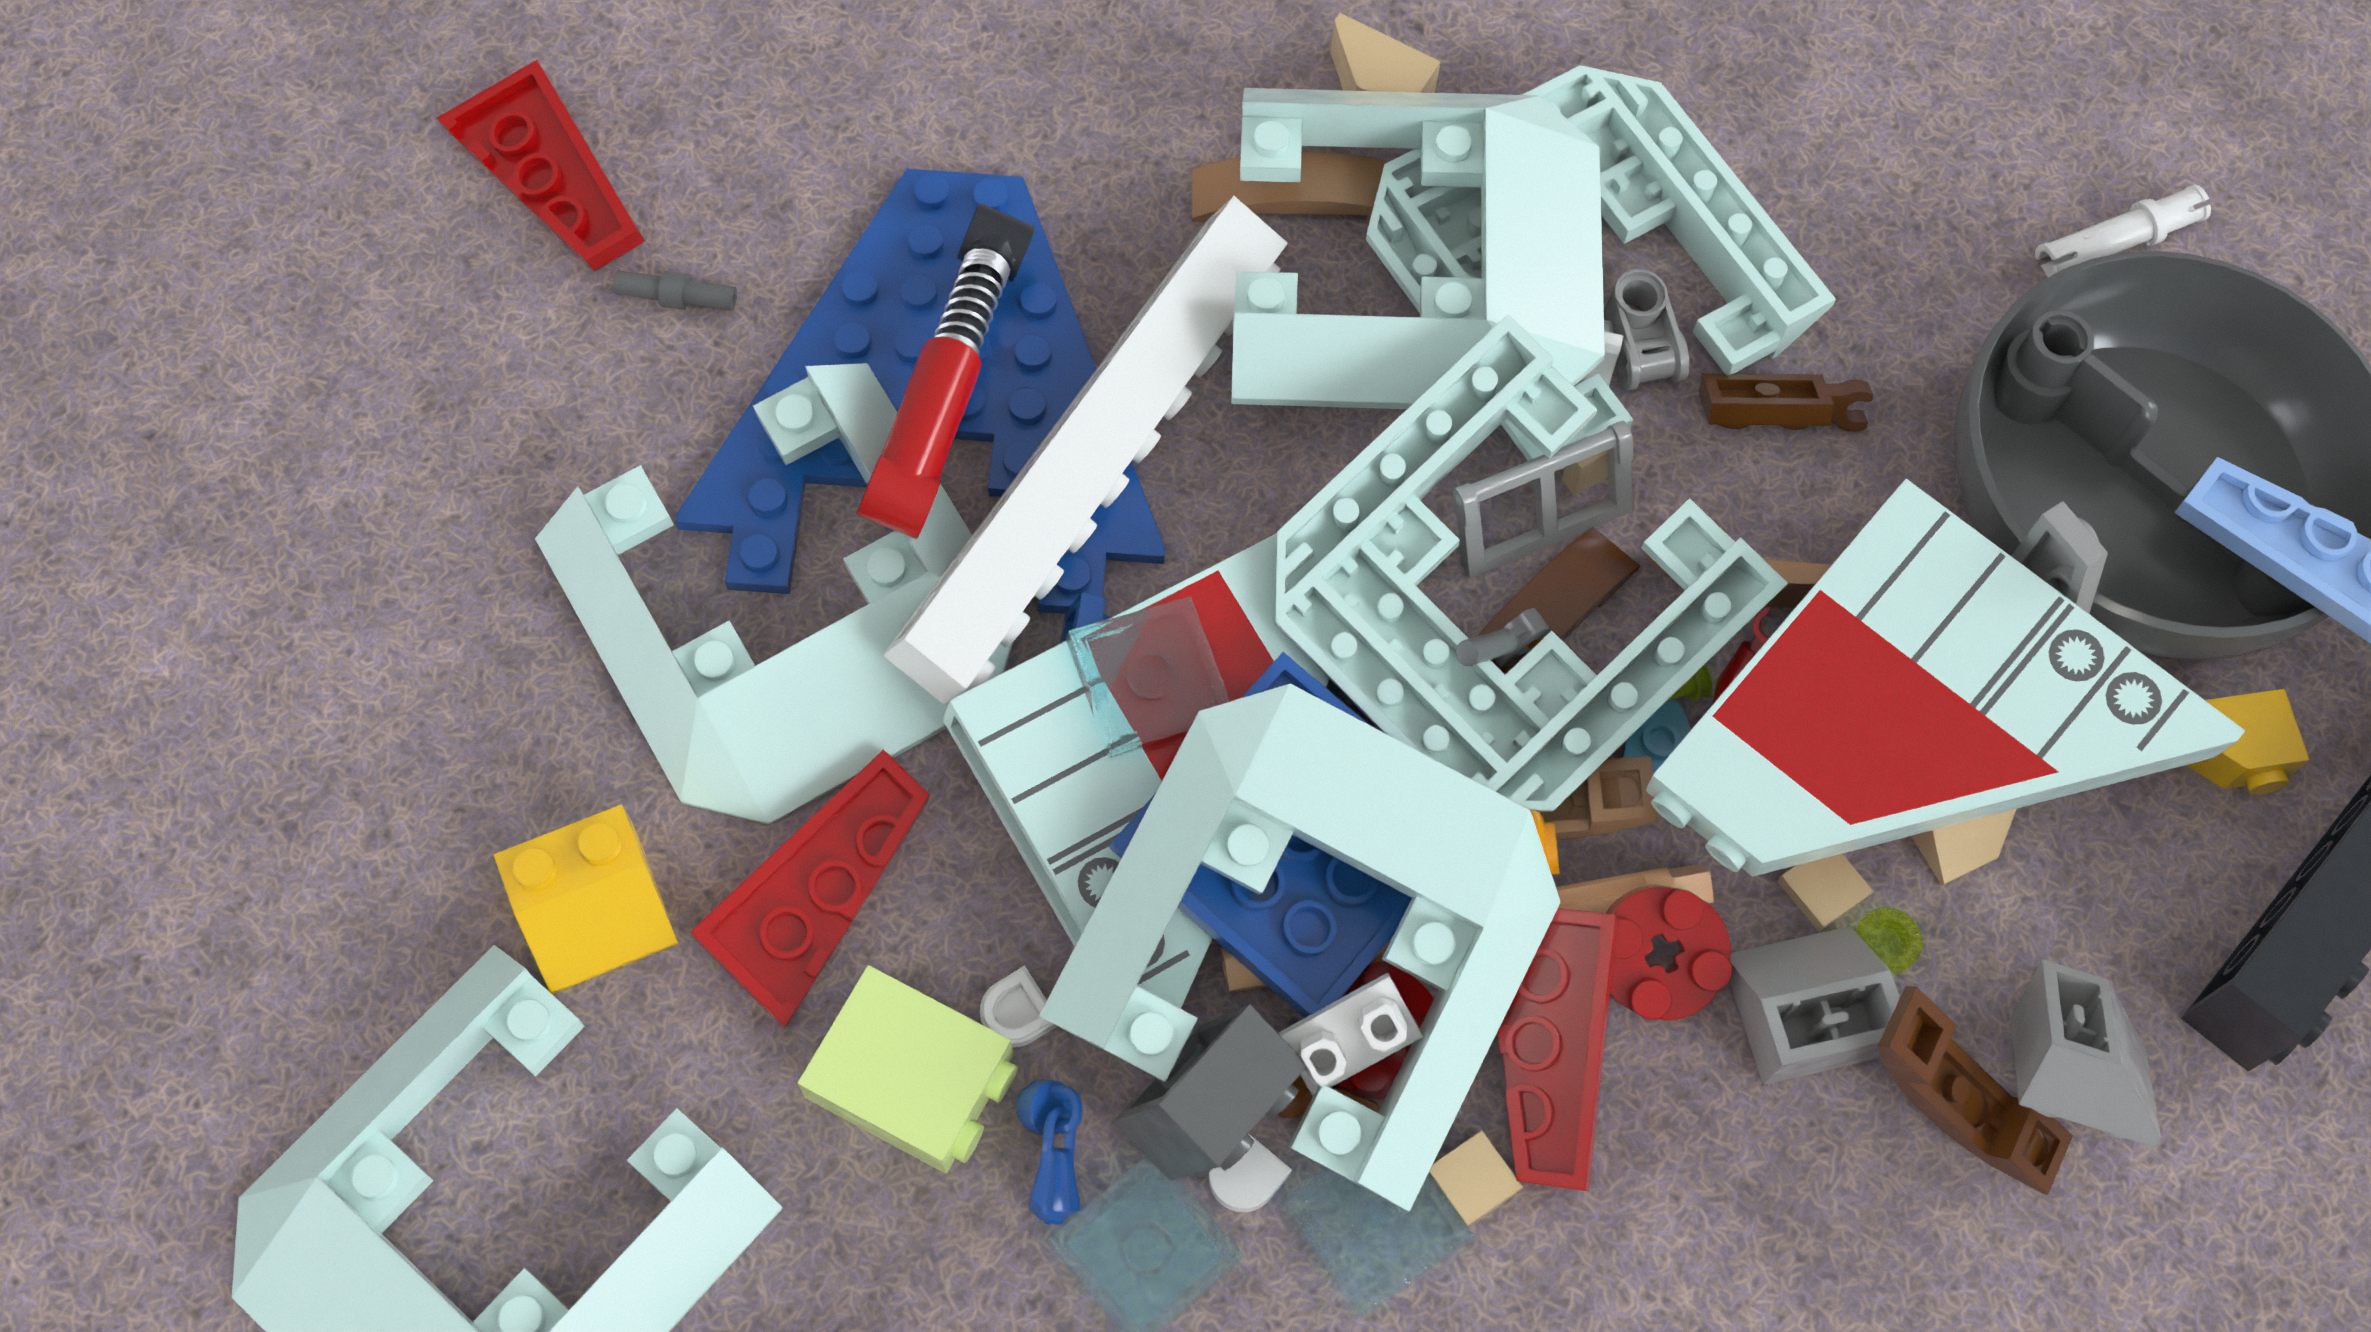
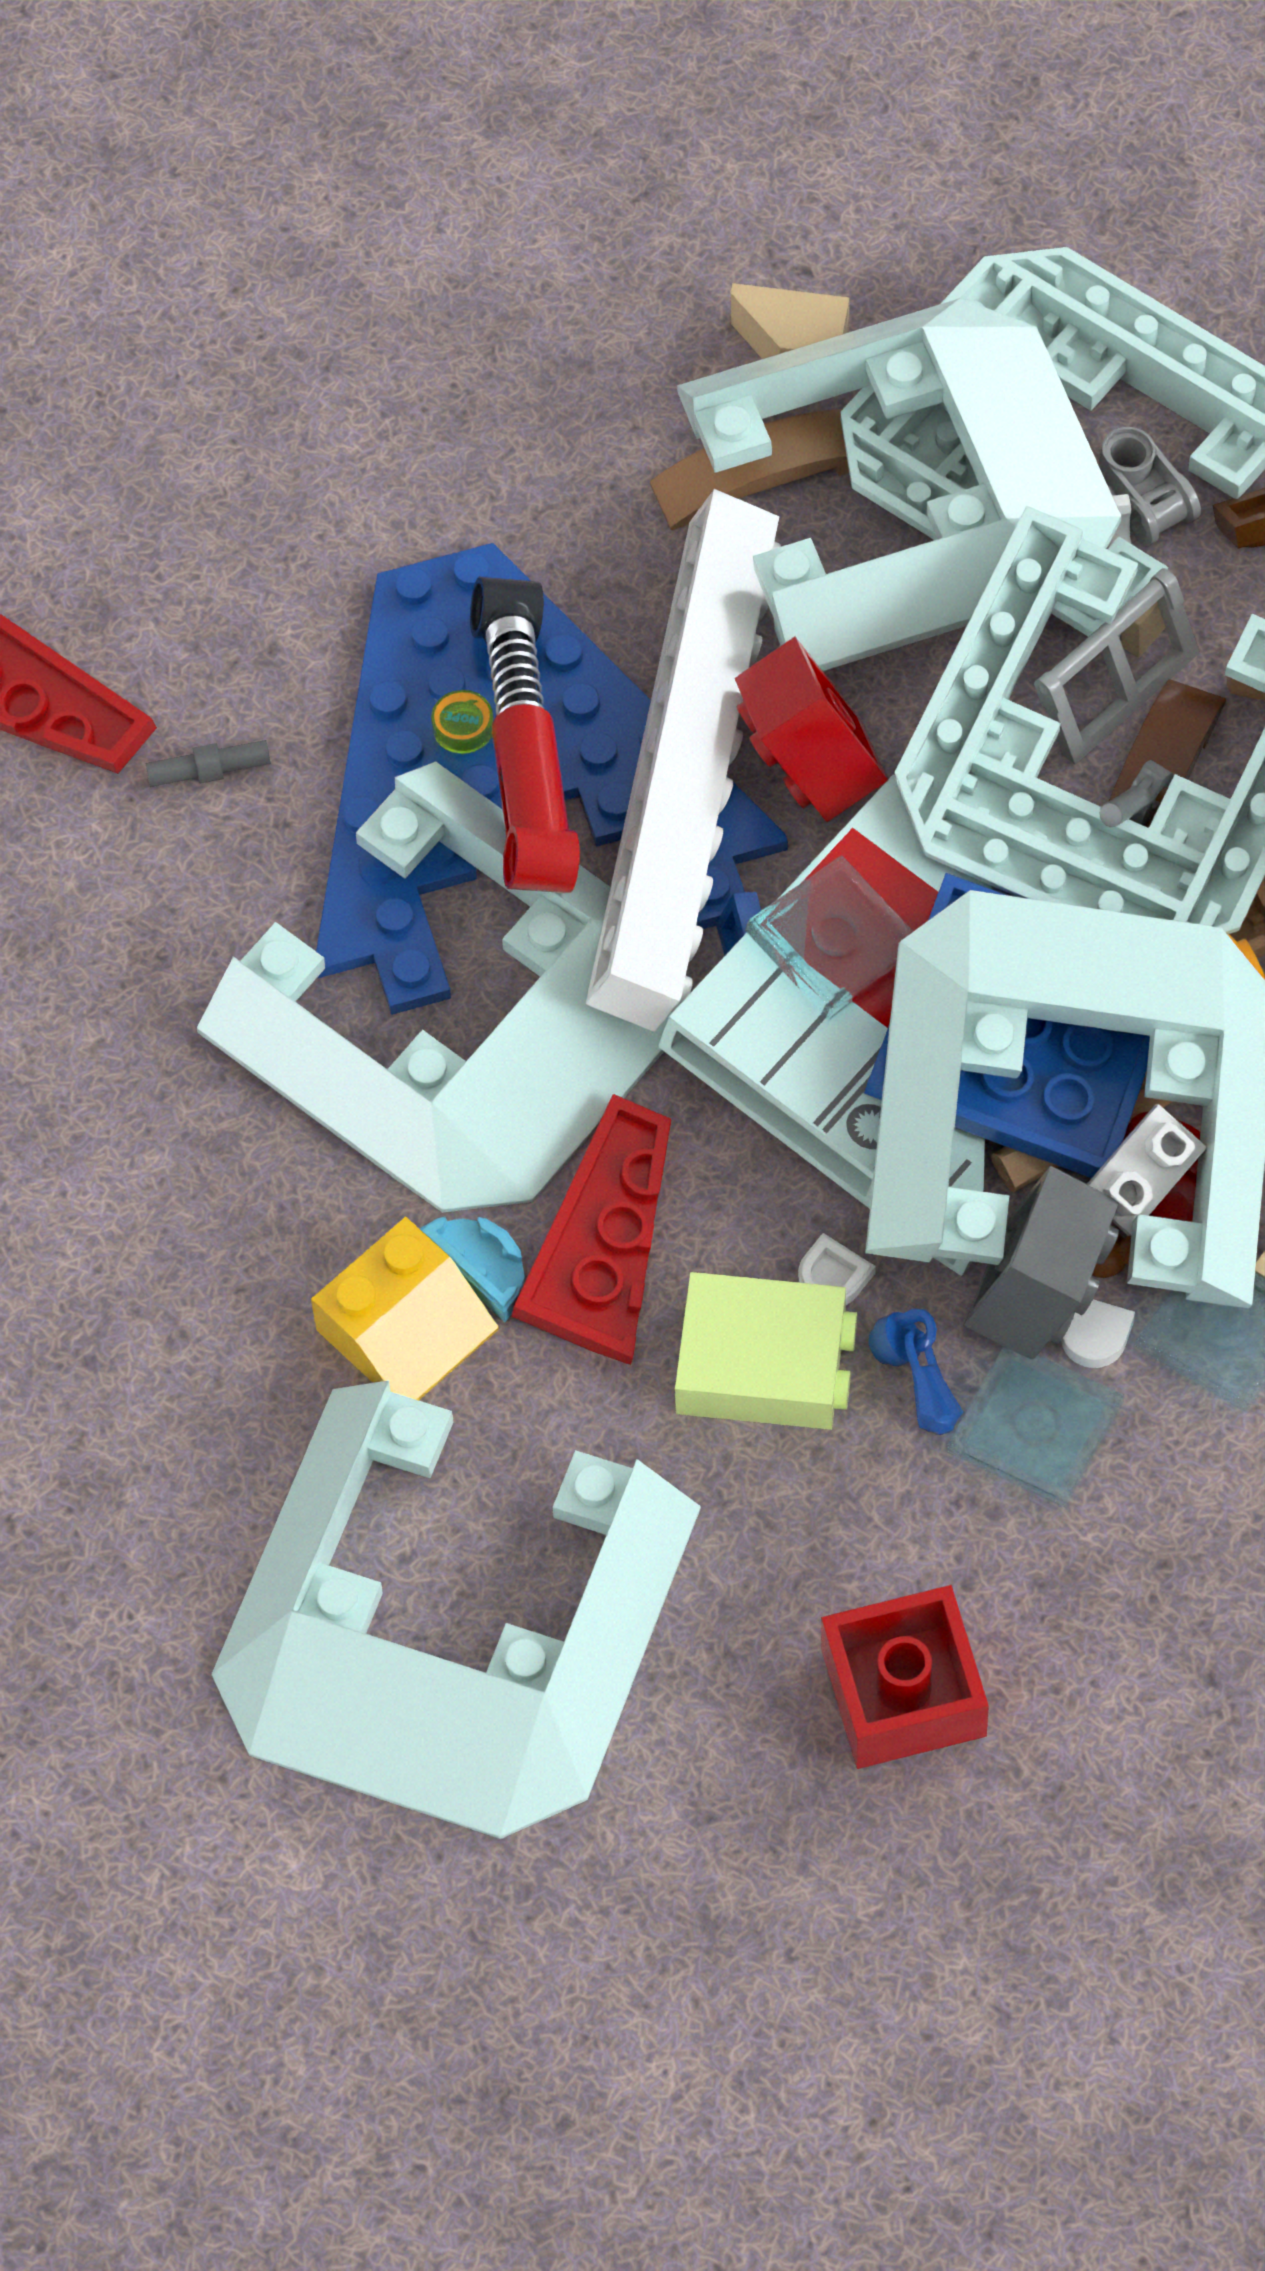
camera: 15 degrees left, 5 degrees down
(690, 866) = (485, 1259): none -> medium azure plate
(906, 330) = (462, 721): none -> clear neon green tile
(1218, 459) = (808, 731): none -> red brick

